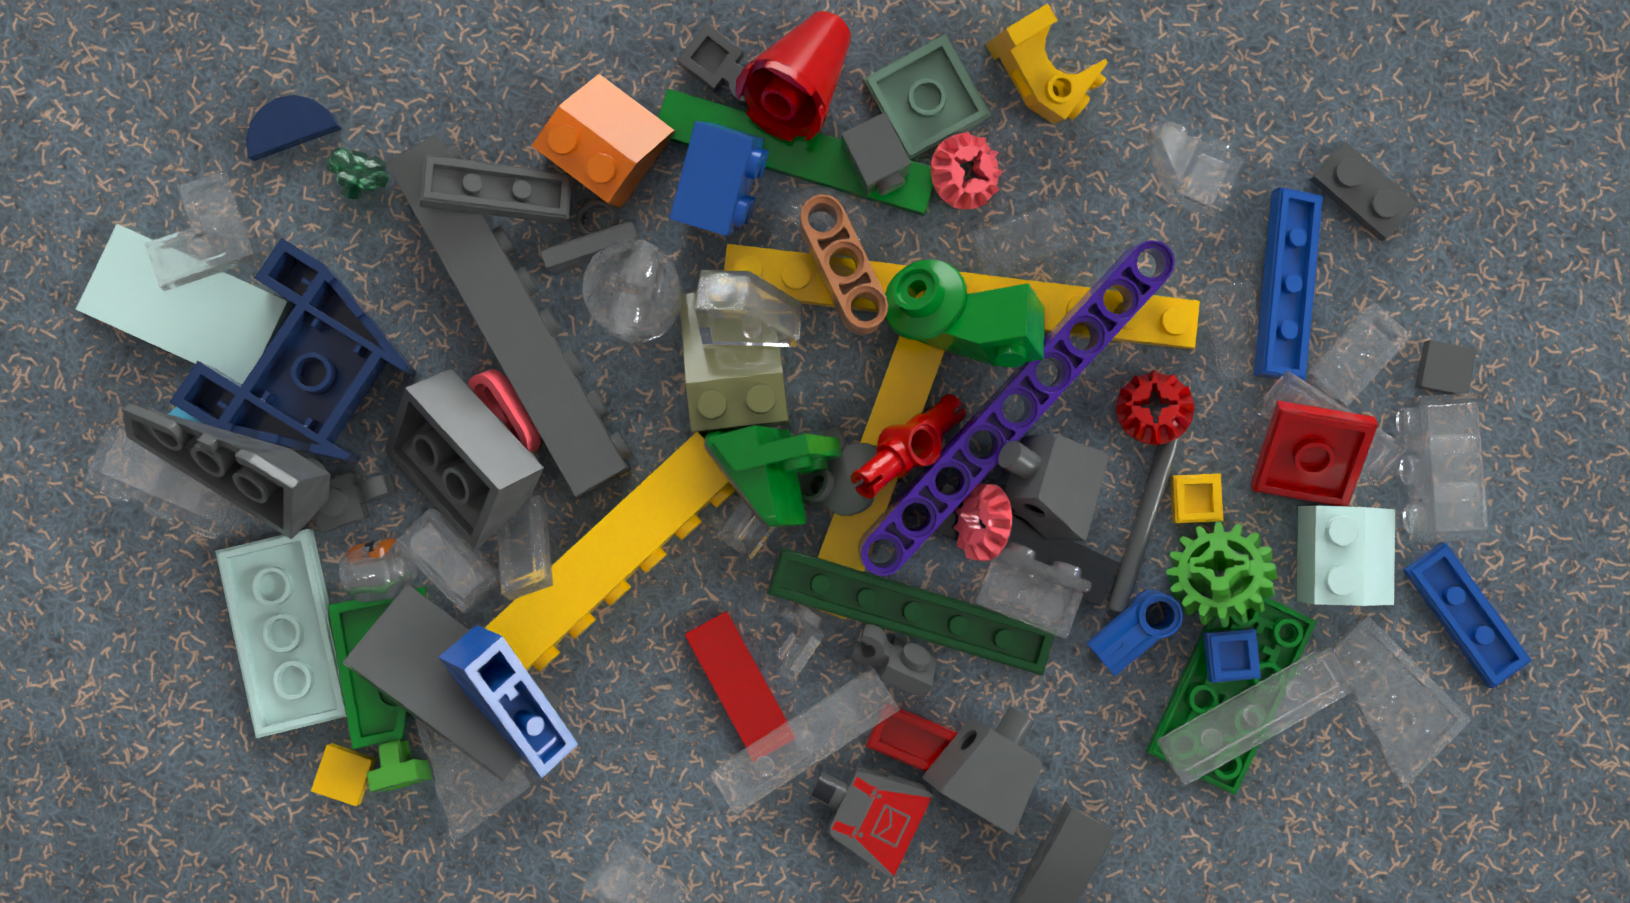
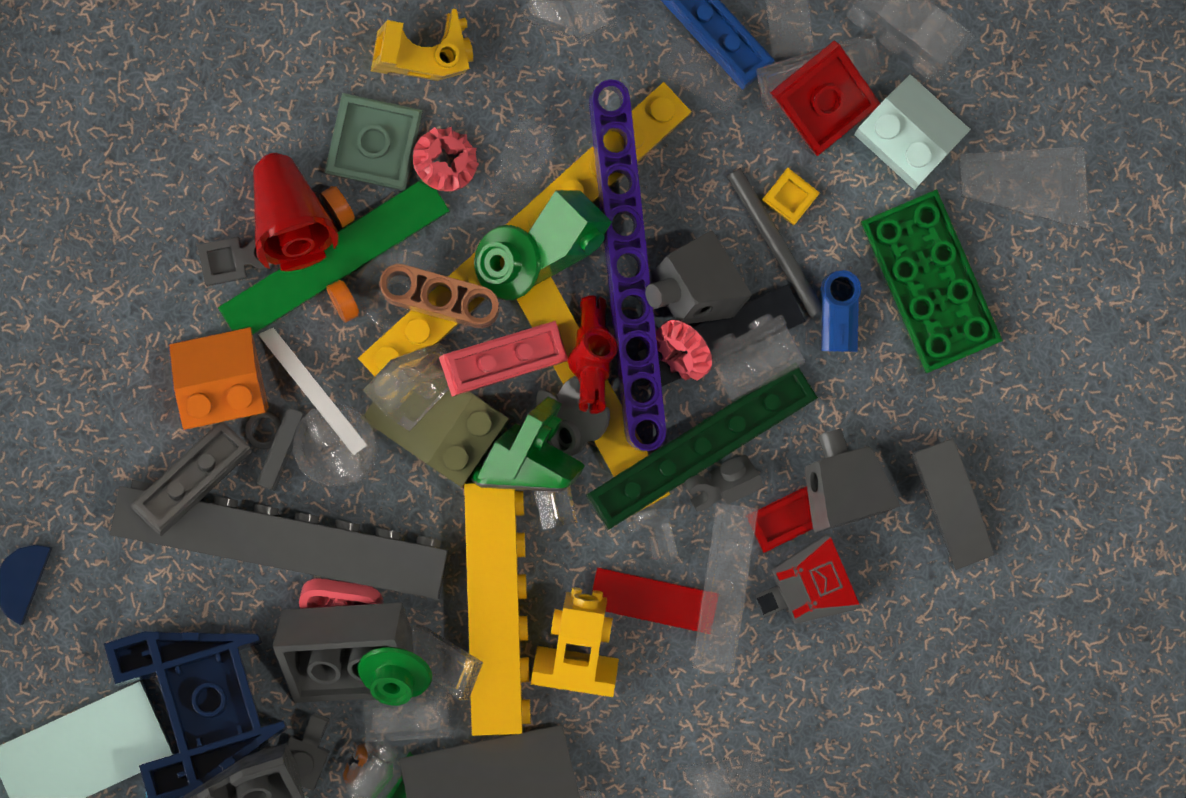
camera: 45 degrees left, 0 degrees up
(214, 241) = (58, 695): clear tile -> none
(356, 171) = (94, 560): clear green plant -> none
(471, 517) = (394, 675): none -> green piece
(509, 698) = (530, 752): blue slope -> none
(629, 664) = (581, 624): none -> yellow tile
(660, 238) = (313, 391): none -> white sticker
(719, 178) = (311, 326): blue brick -> none
(767, 189) = (343, 301): none -> orange tile
(836, 369) = (503, 358): none -> coral tile
(844, 113) = (338, 206): none -> orange tile
(876, 155) = (385, 211): dark grey brick -> none
(1172, 420) = (725, 169): red gear -> none
(1200, 567) = (857, 223): bright green gear -> none
(1231, 655) = (908, 264): blue tile -> none
(1255, 715) = (959, 283): clear tile -> none
(1467, 615) = (1018, 88): blue tile -> none

